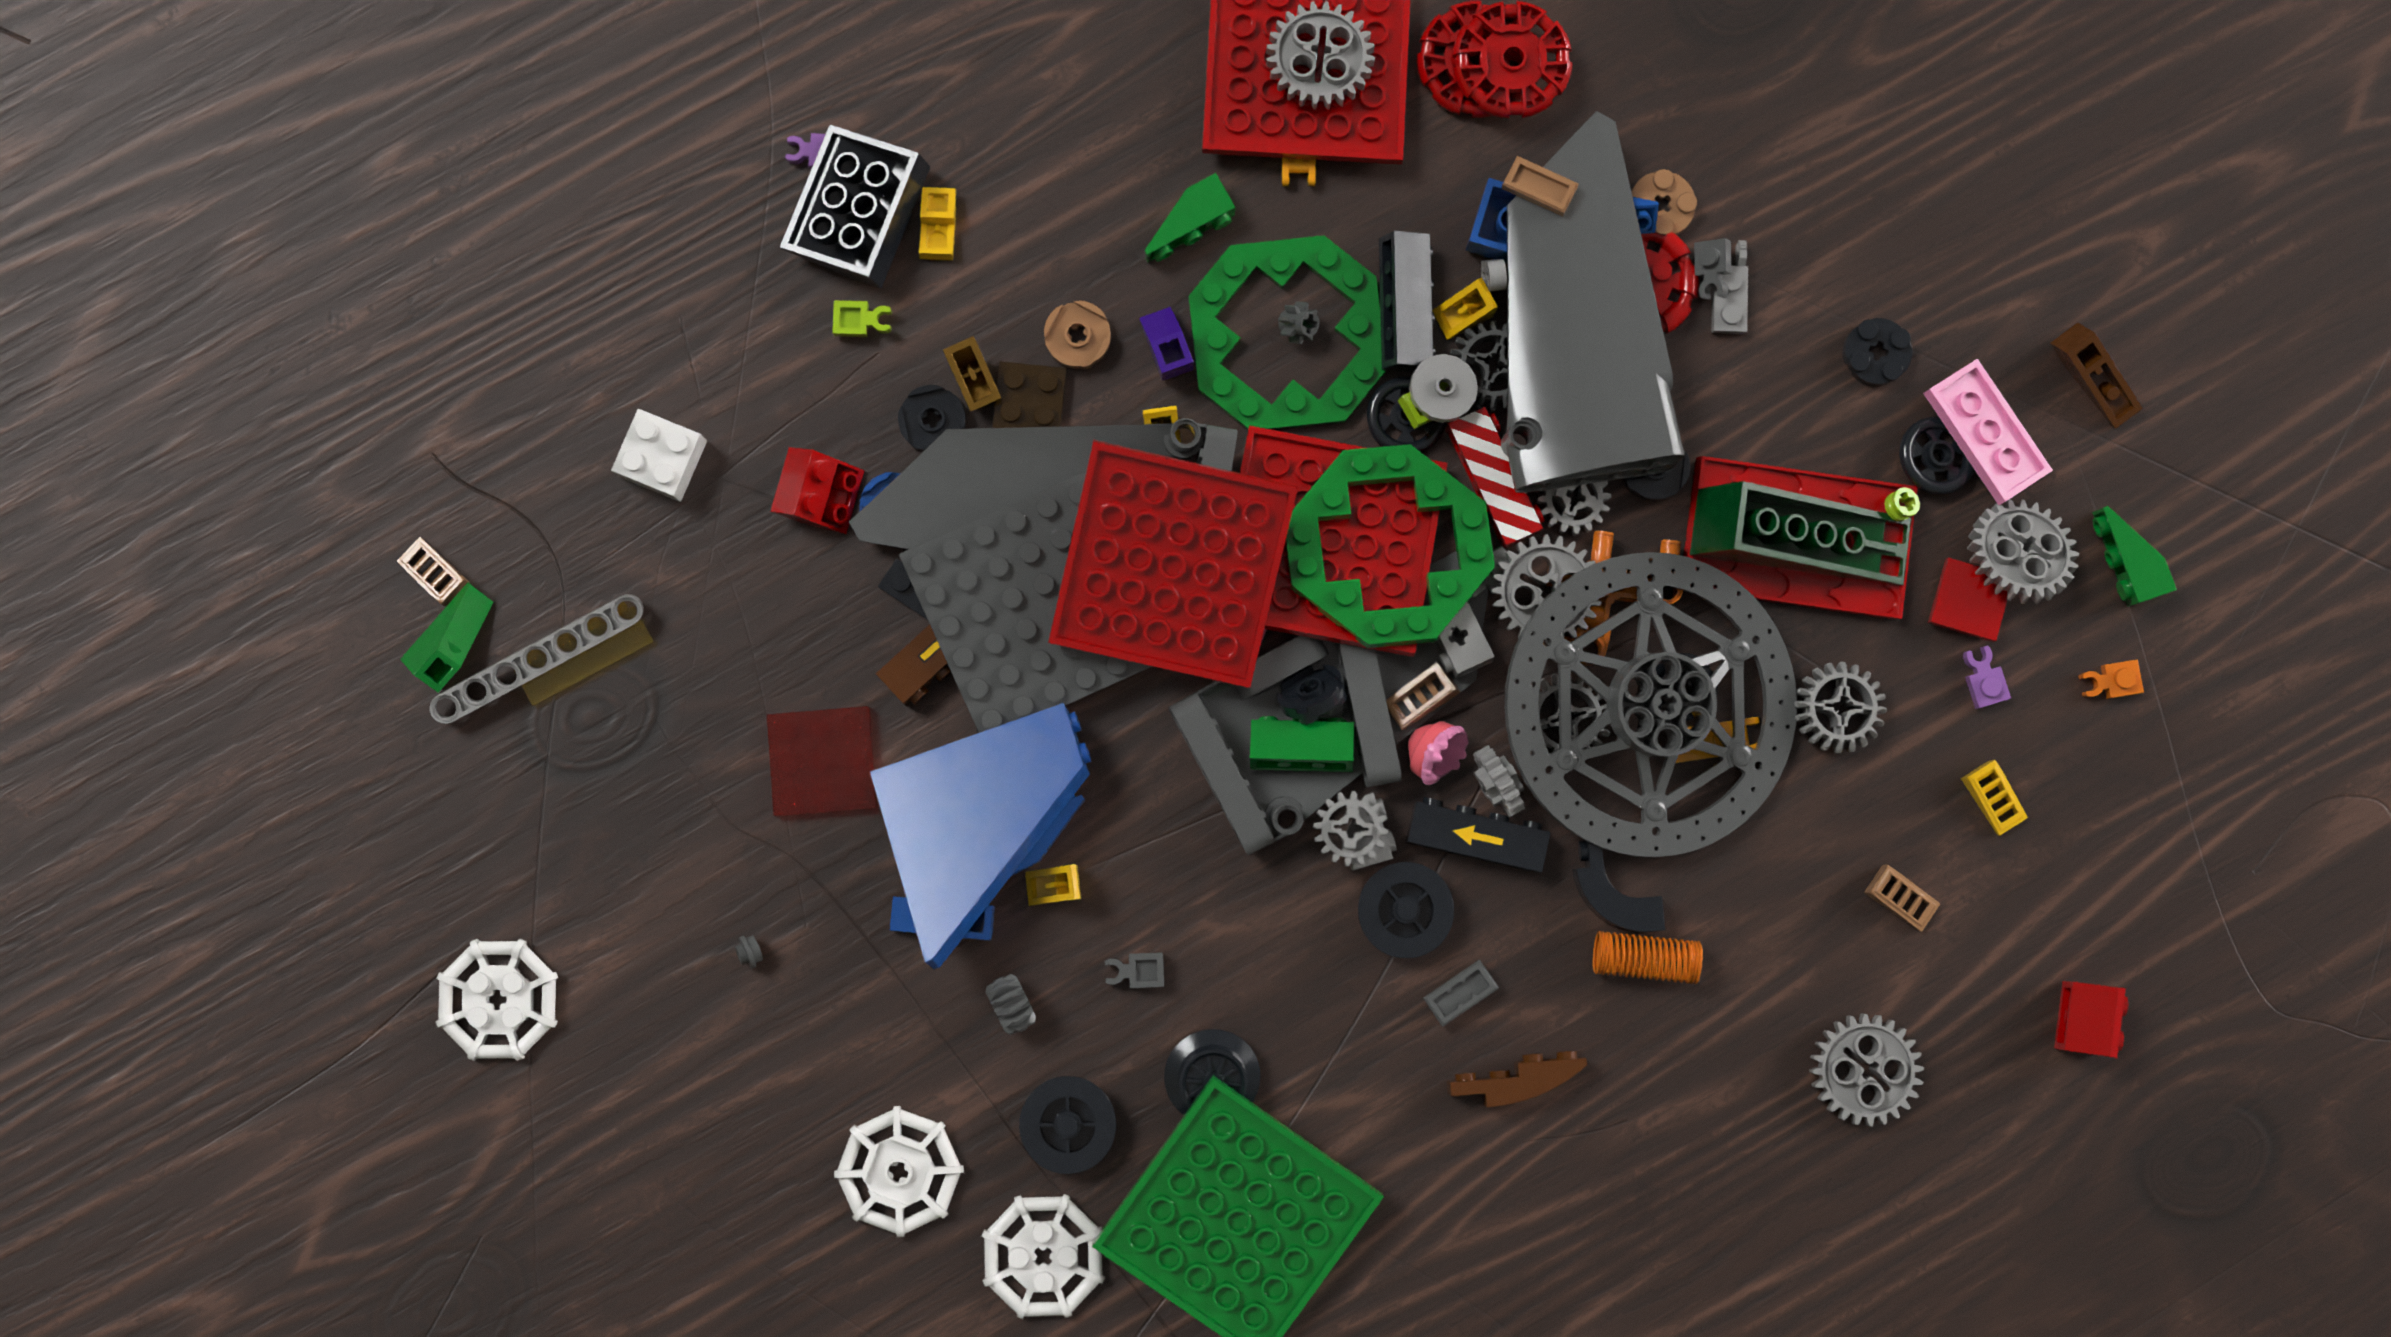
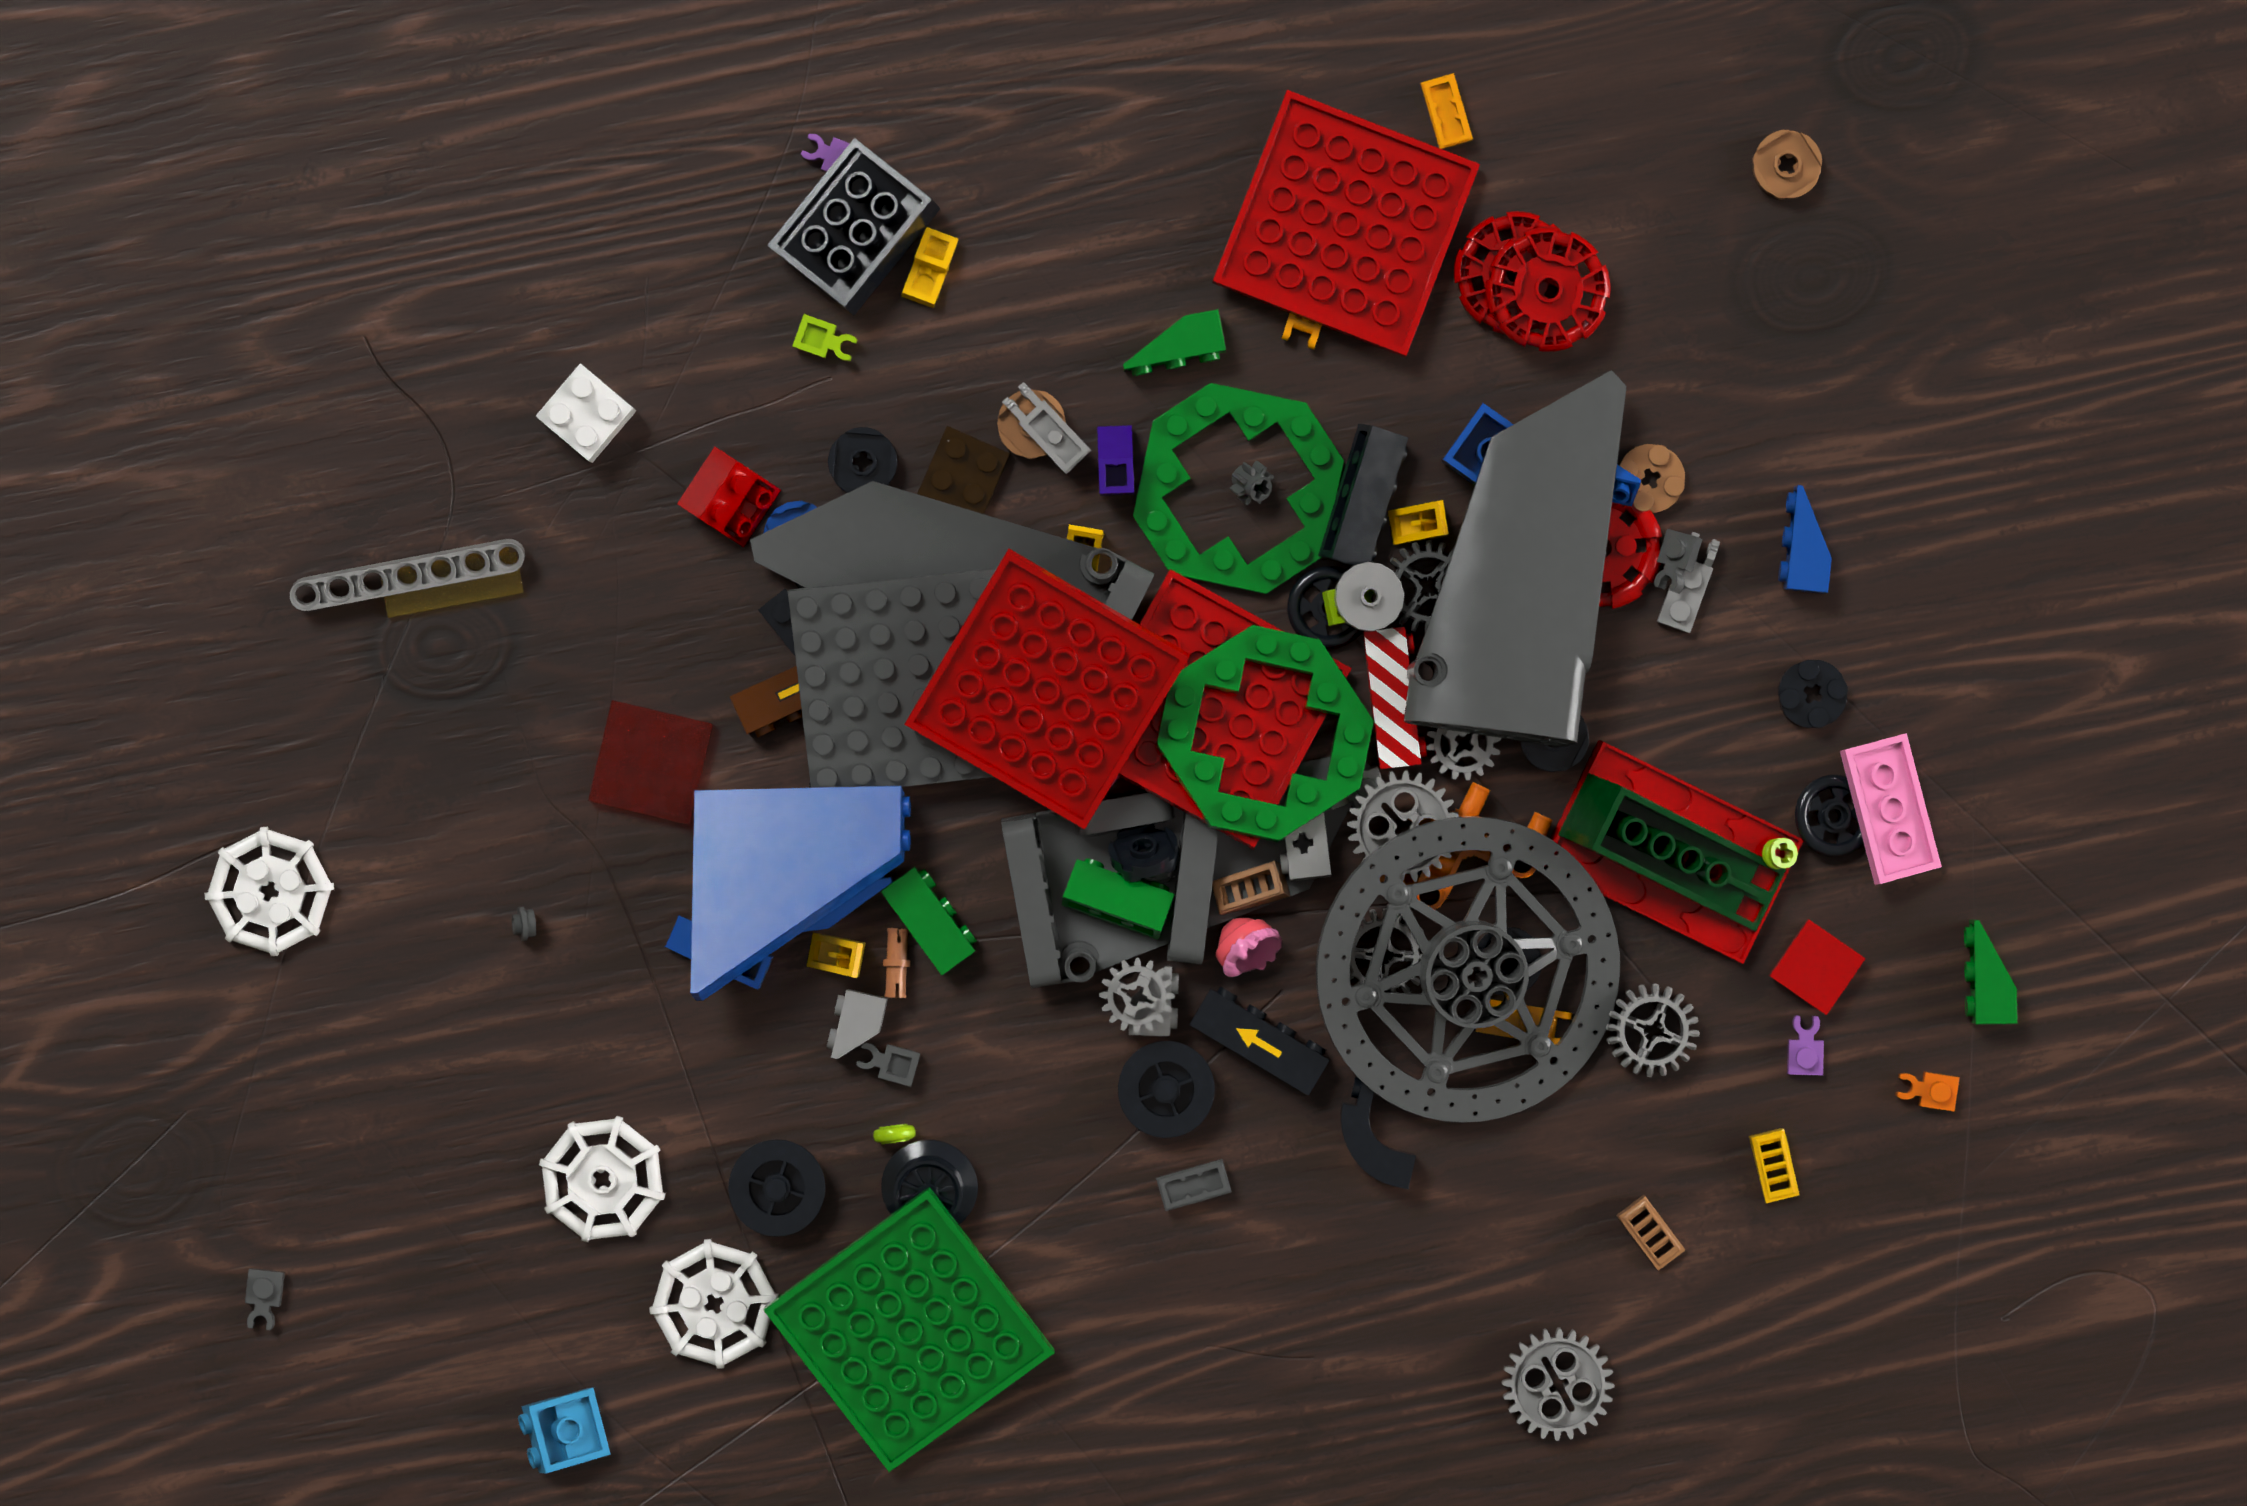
camera: 20 degrees right, 5 degrees up
(448, 639) = (327, 529): green slope -> none
(457, 582) = (344, 479): slope -> none
(971, 373) = (915, 432): pearl gold slope -> none
(1010, 1004) = (758, 1056): dark grey gear -> none
(1095, 332) = (1049, 431): none -> light grey hinge
(1095, 941) = (859, 1021): none -> light grey slope
(1113, 874) = (896, 963): none -> nougat pin
(1131, 822) = (930, 919): none -> green brick
(1162, 1037) = (894, 1133): none -> lime piece
(1290, 52) = (1330, 213): light grey gear -> none
(1494, 274) = (1457, 499): light grey beam -> none
(1498, 781) = (1296, 995): light grey gear -> none
(1531, 1078) = (1236, 1287): reddish brown slope -> none
(1540, 186) = (1528, 430): medium nougat tile -> none
(1605, 955) = (1346, 1185): orange piece -> none
(1829, 224) = (1808, 557): none -> blue slope
(2023, 551) = (1904, 920): light grey gear -> none
(2091, 1019) = (1787, 1406): red slope -> none
(2096, 373) = (2018, 787): reddish brown slope -> none

